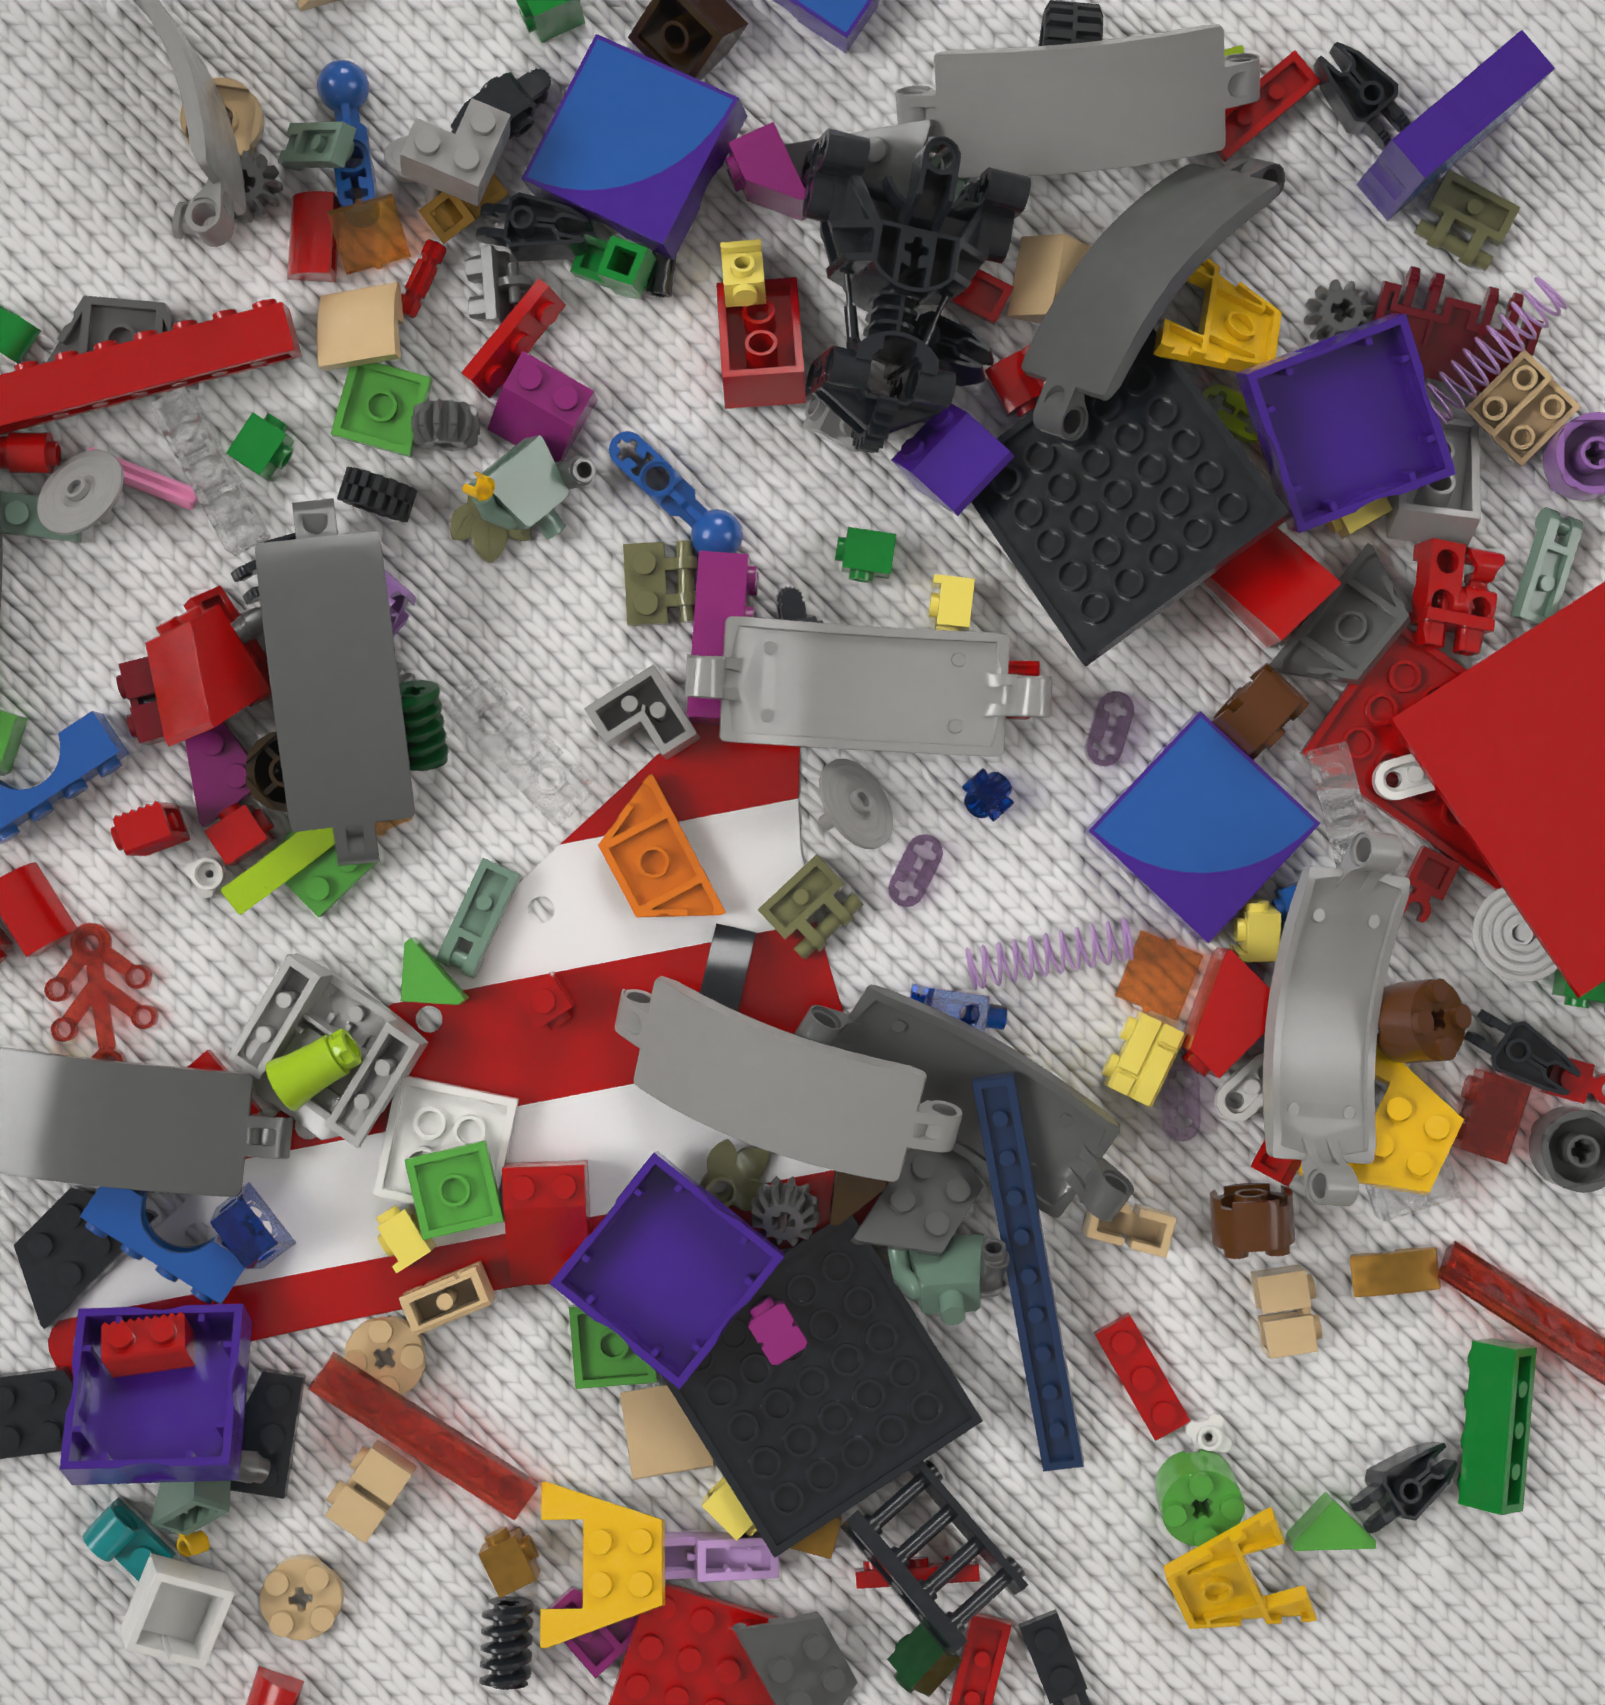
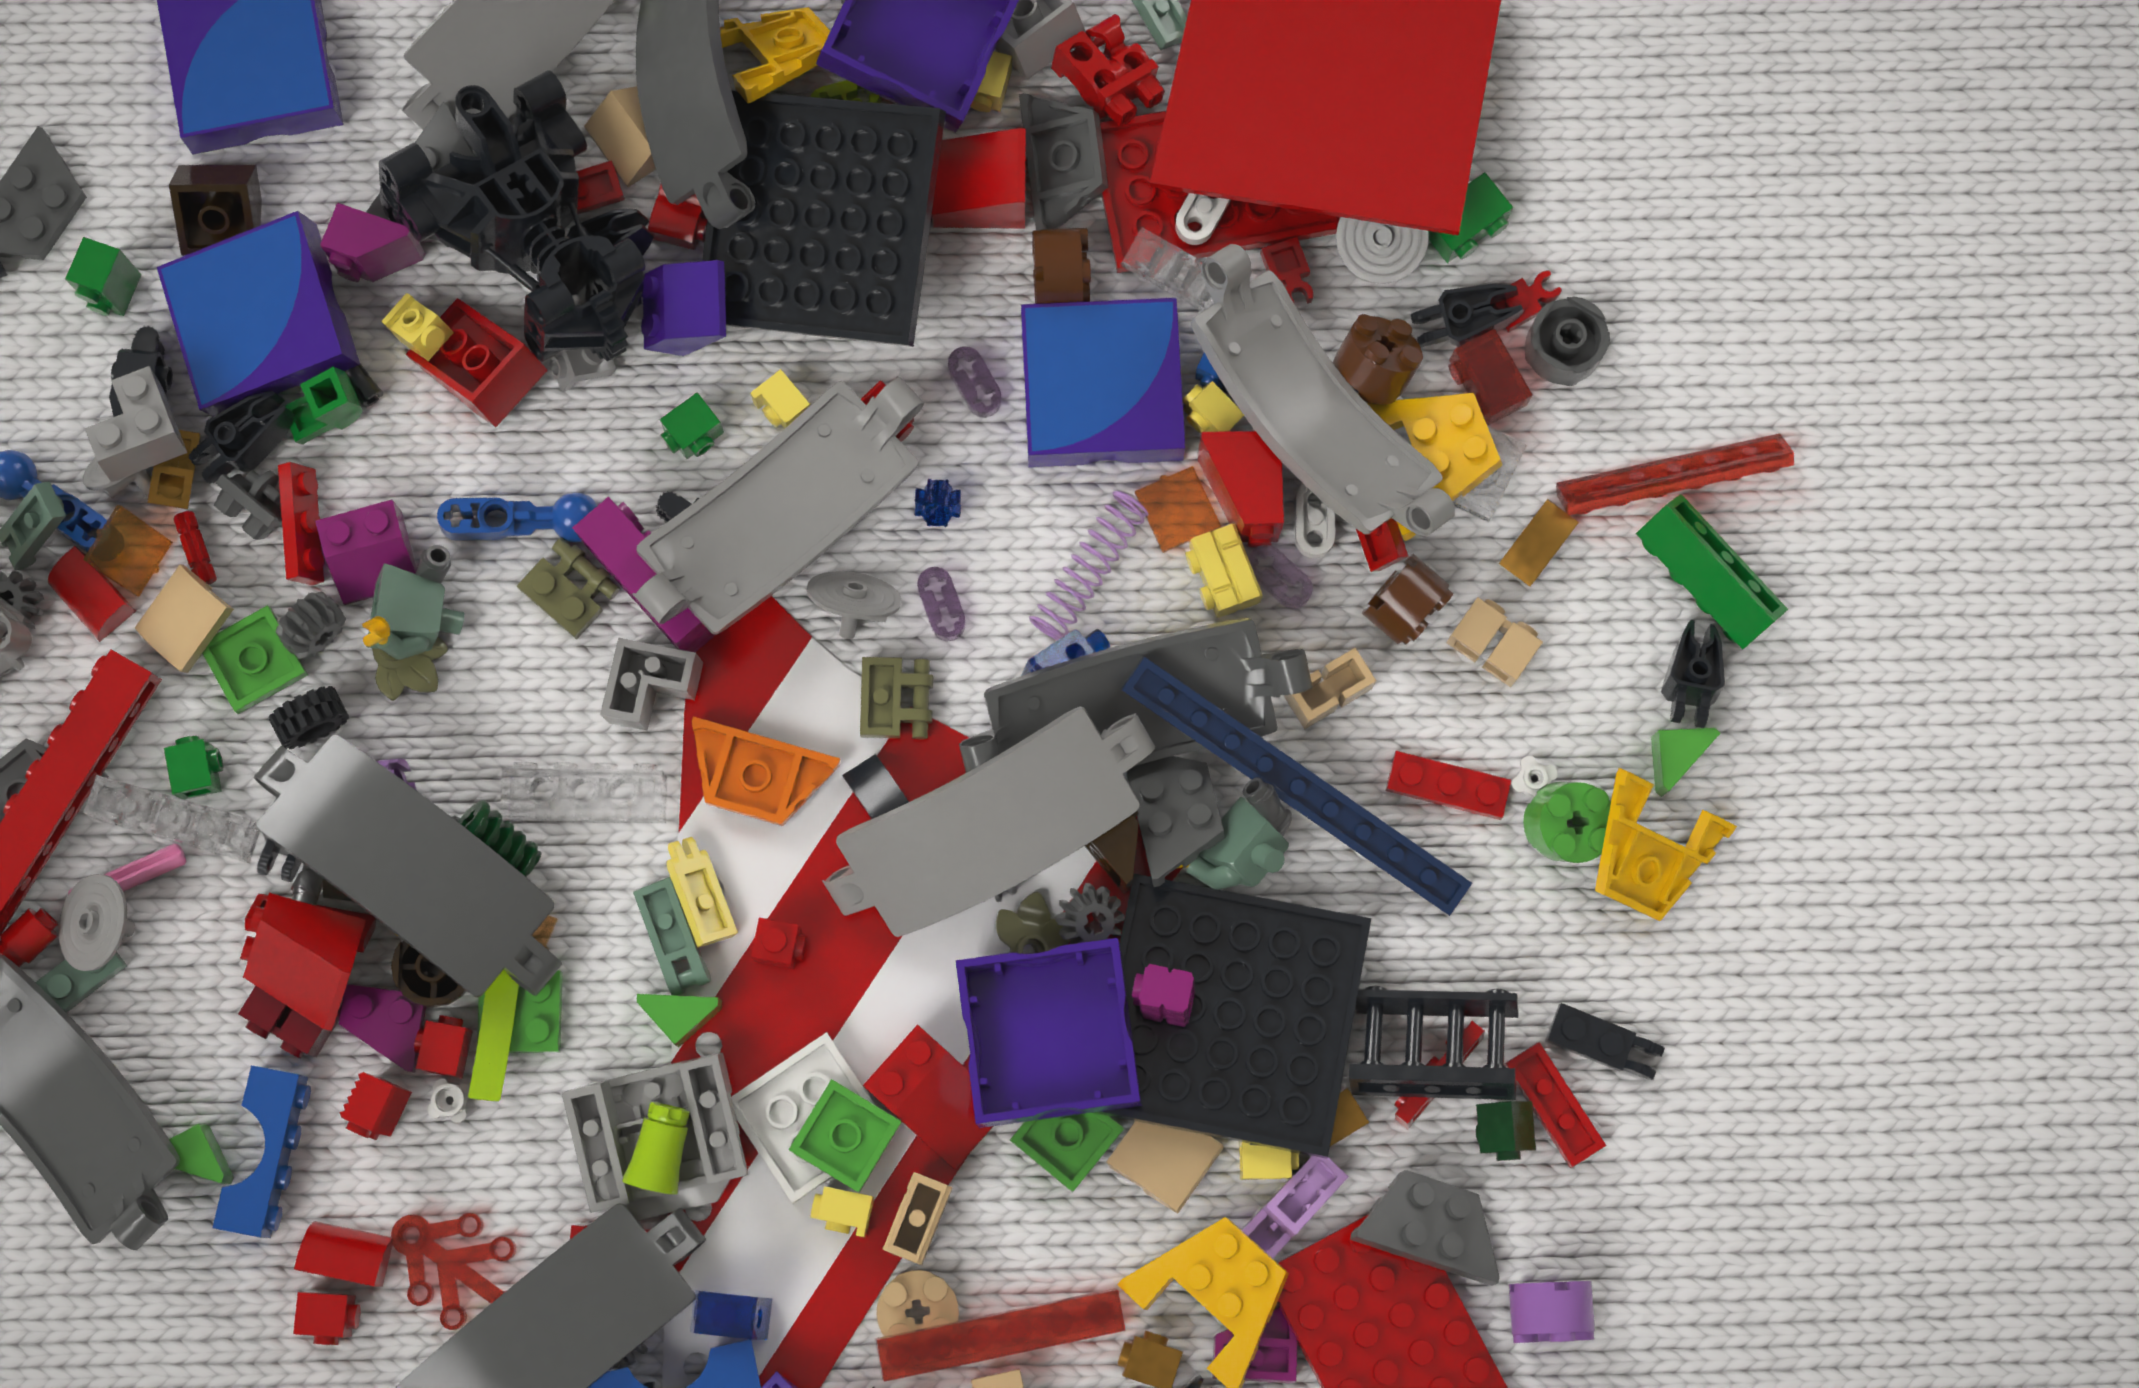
camera: 45 degrees left, 10 degrees down
(528, 907) = (699, 893): none -> light yellow hinge

